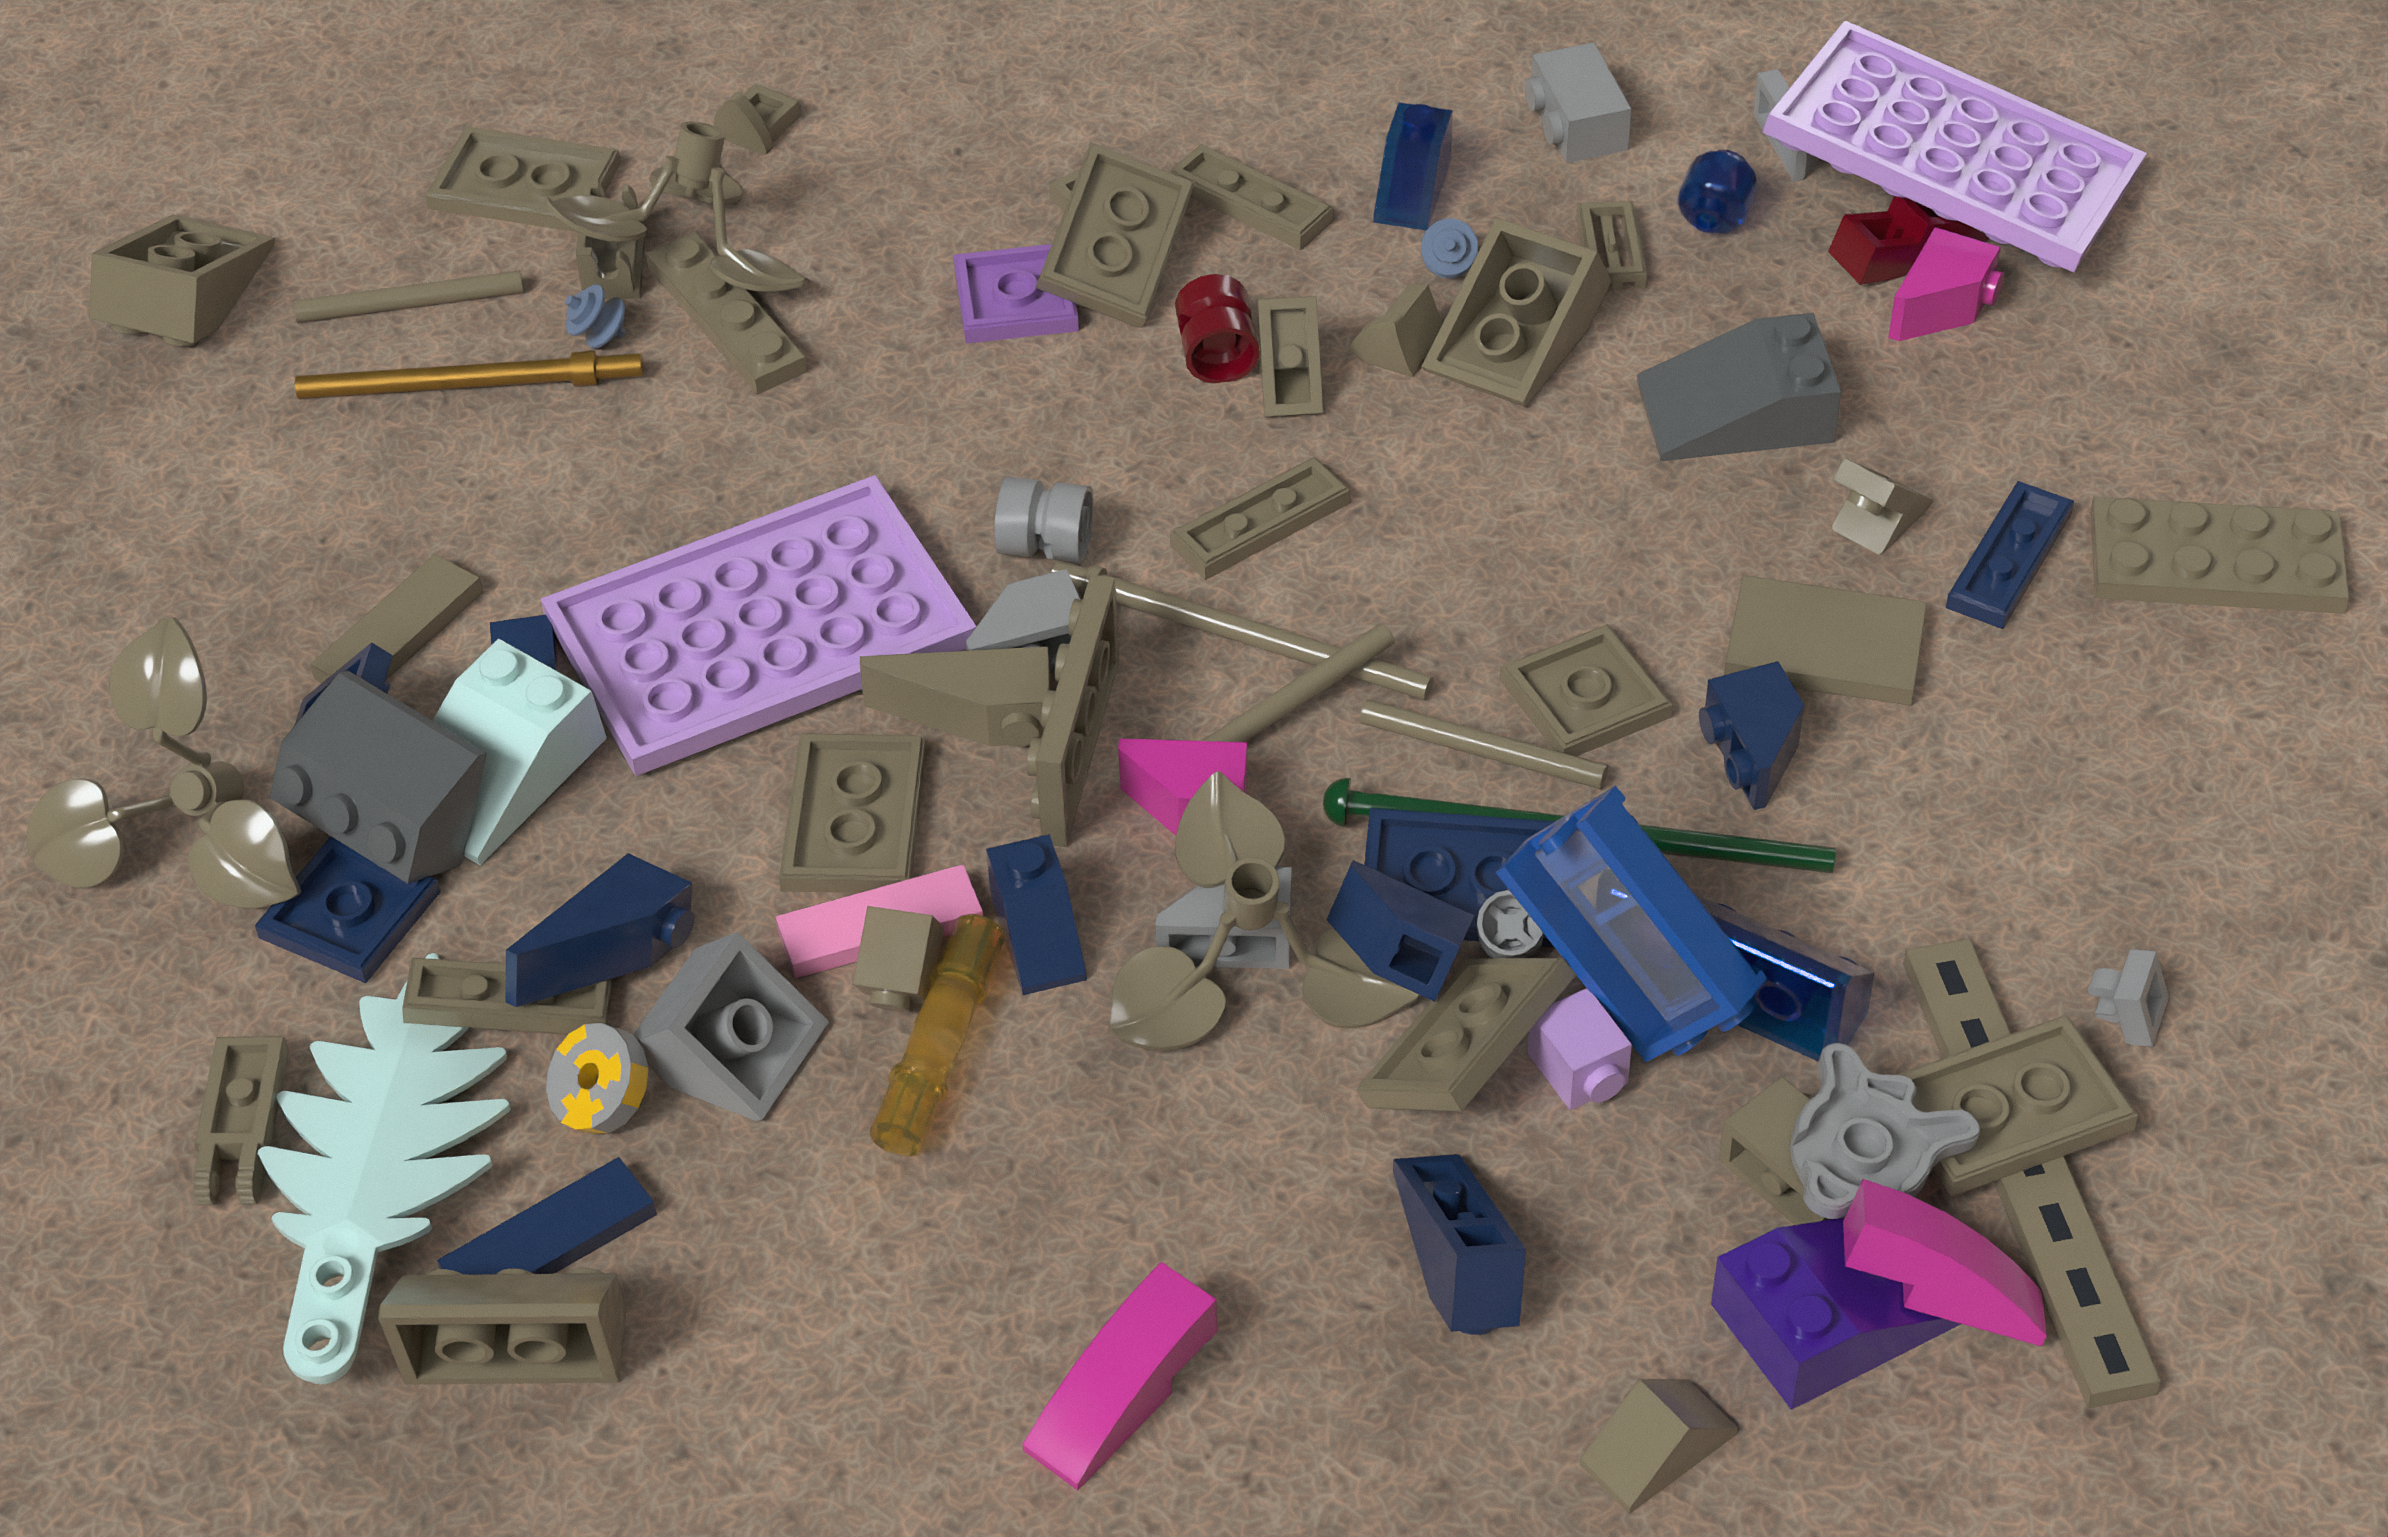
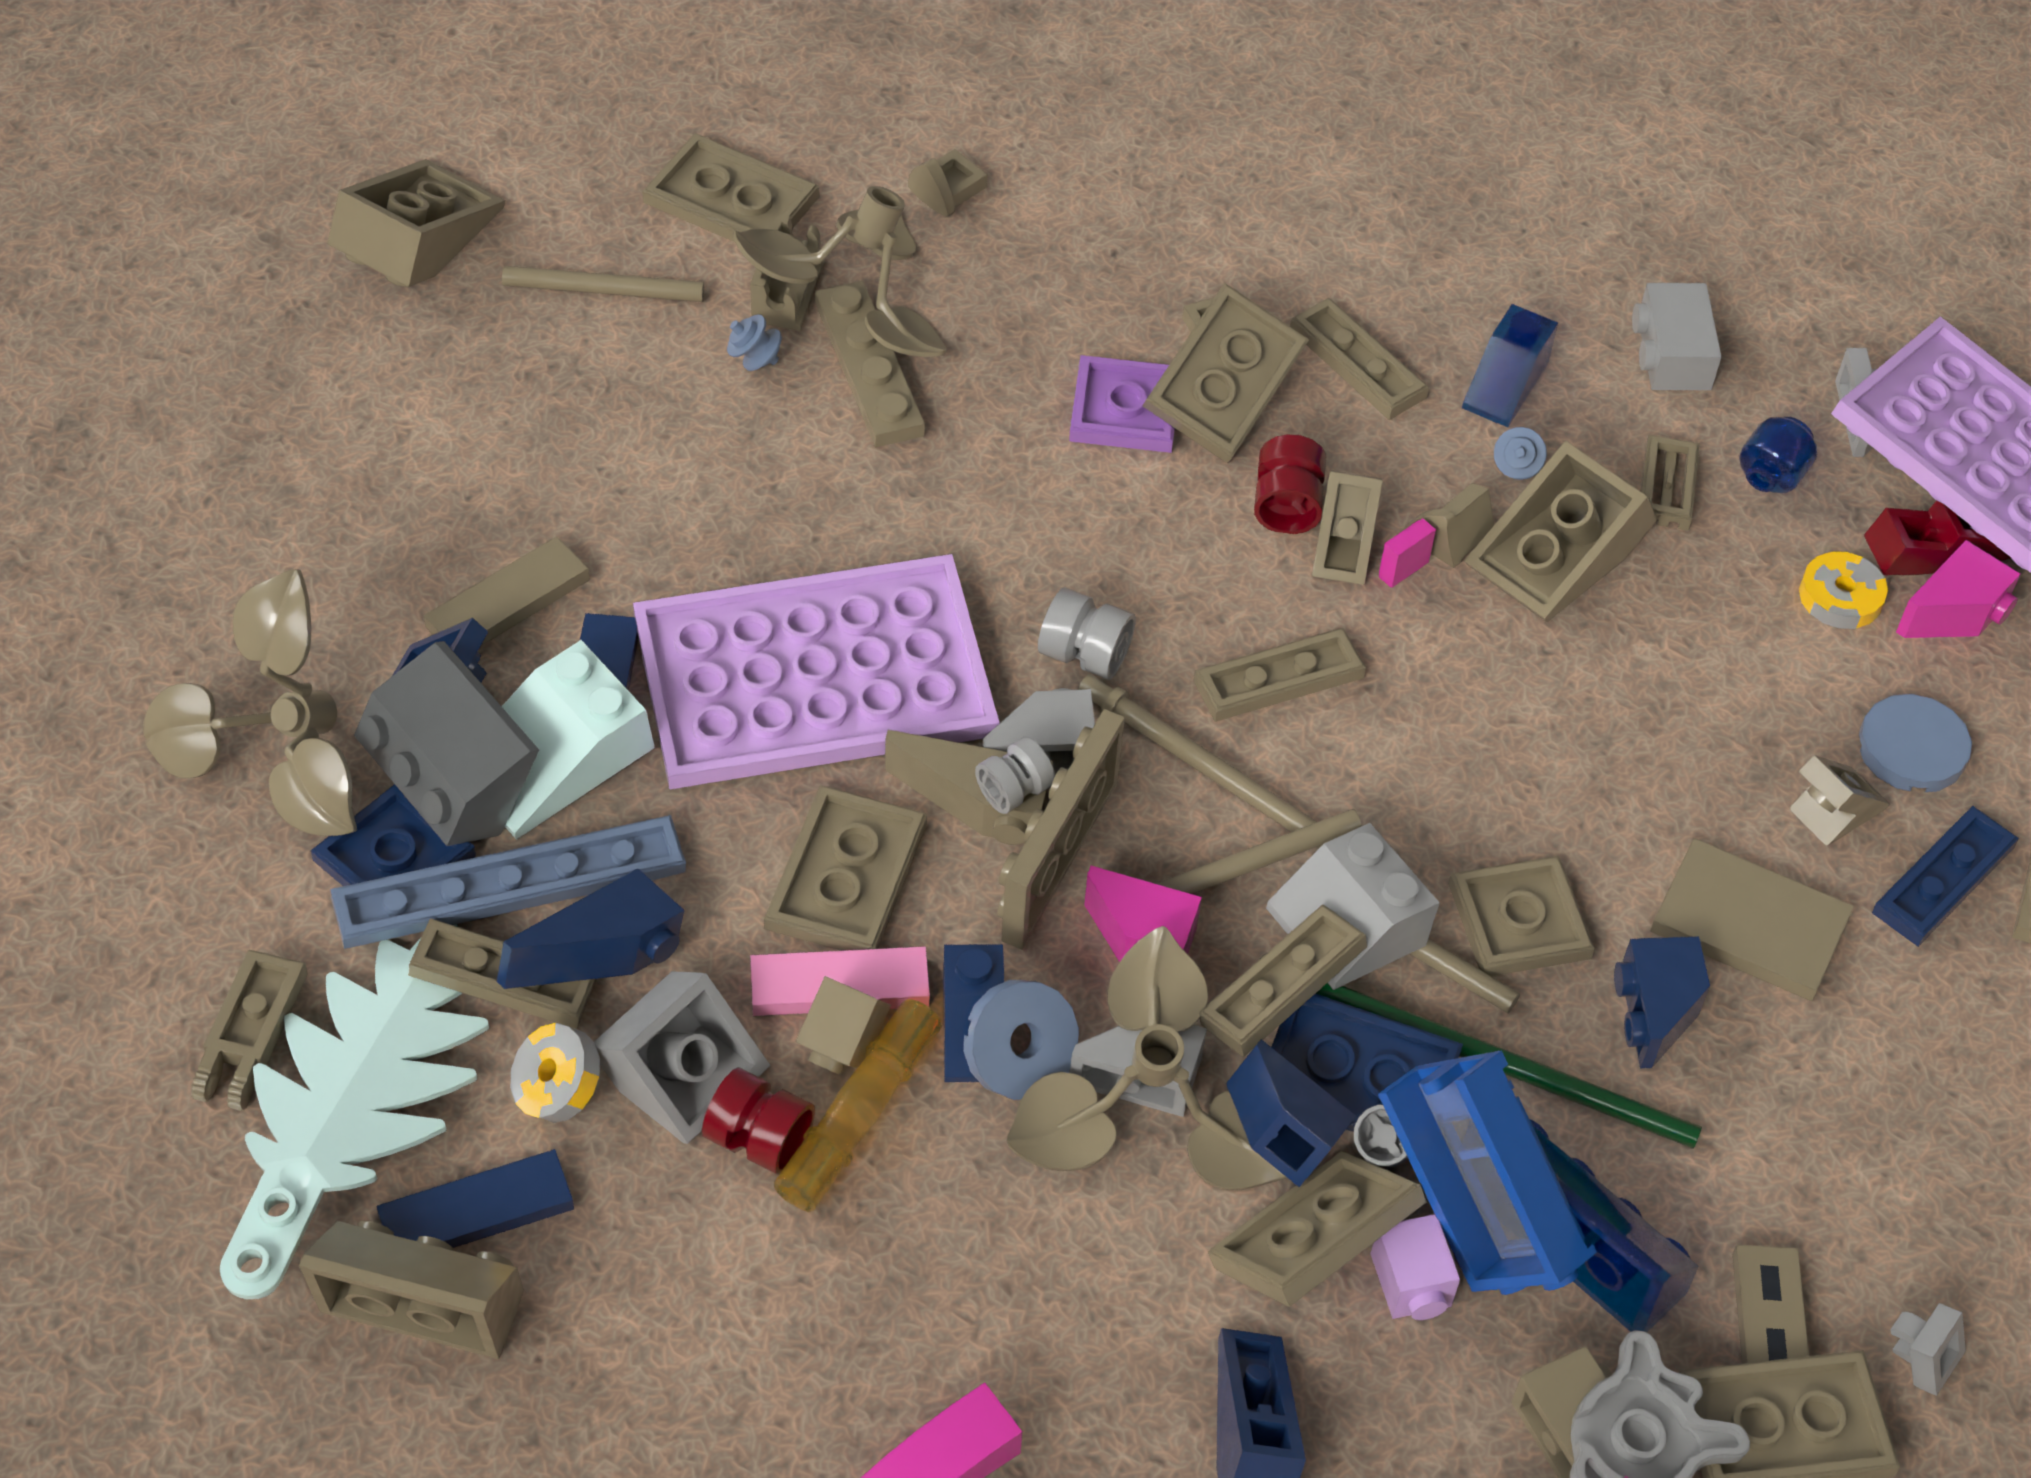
camera: 10 degrees right, 5 degrees up
(477, 906) = (504, 881): none -> sand blue tile
(581, 368) = (729, 388): pearl gold bar -> none
(826, 1072) = (753, 1118): none -> dark red wheel
(1016, 661) = (1015, 775): none -> light grey wheel
(1062, 916) = (993, 1022): none -> sand blue tile
(1358, 799) = (1282, 980): none -> dark tan tile
(1359, 369) = (1406, 552): none -> dark pink tile
(1411, 714) = (1368, 888): none -> light grey slope
(1744, 391) = (1746, 658): dark grey slope -> none
(1835, 300) = (1839, 608): none -> yellow piece
(1940, 436) = (1914, 743): none -> sand blue tile

